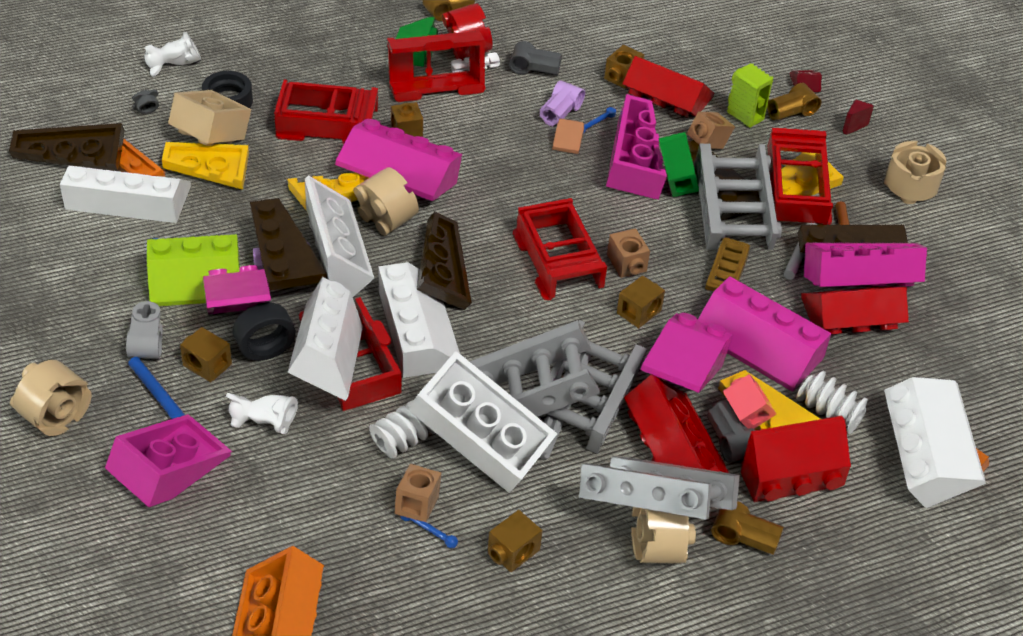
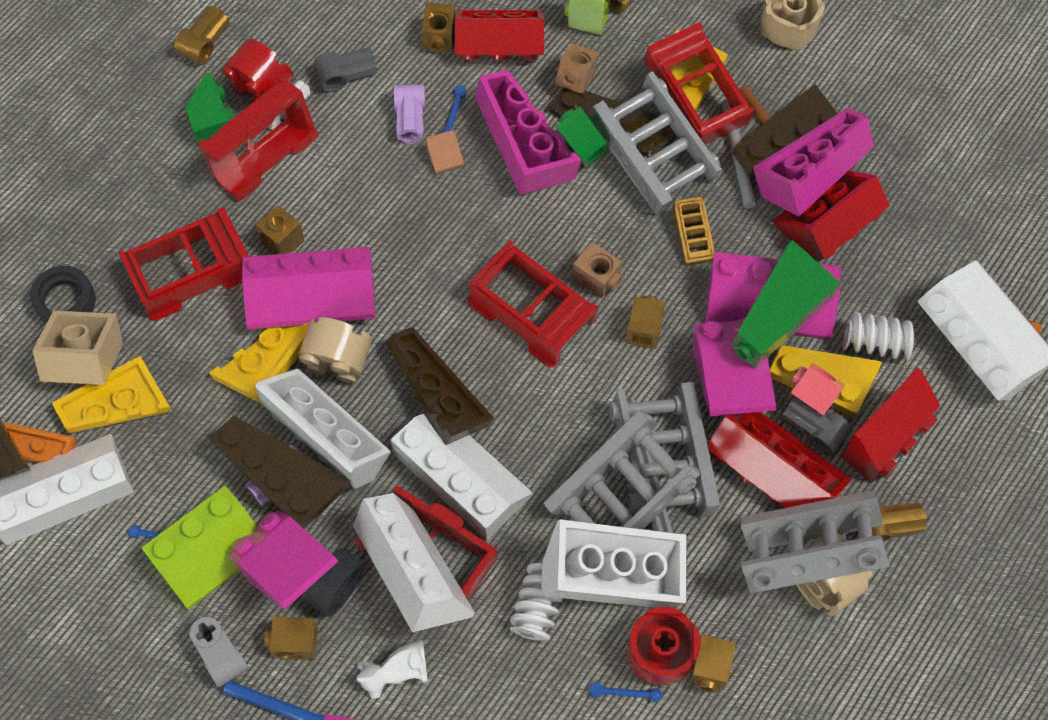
camera: 30 degrees left, 20 degrees up
(417, 493) = (598, 680): medium nougat brick -> none
(479, 502) = (679, 636): none -> red brick
(755, 323) = (786, 302): none -> green slope

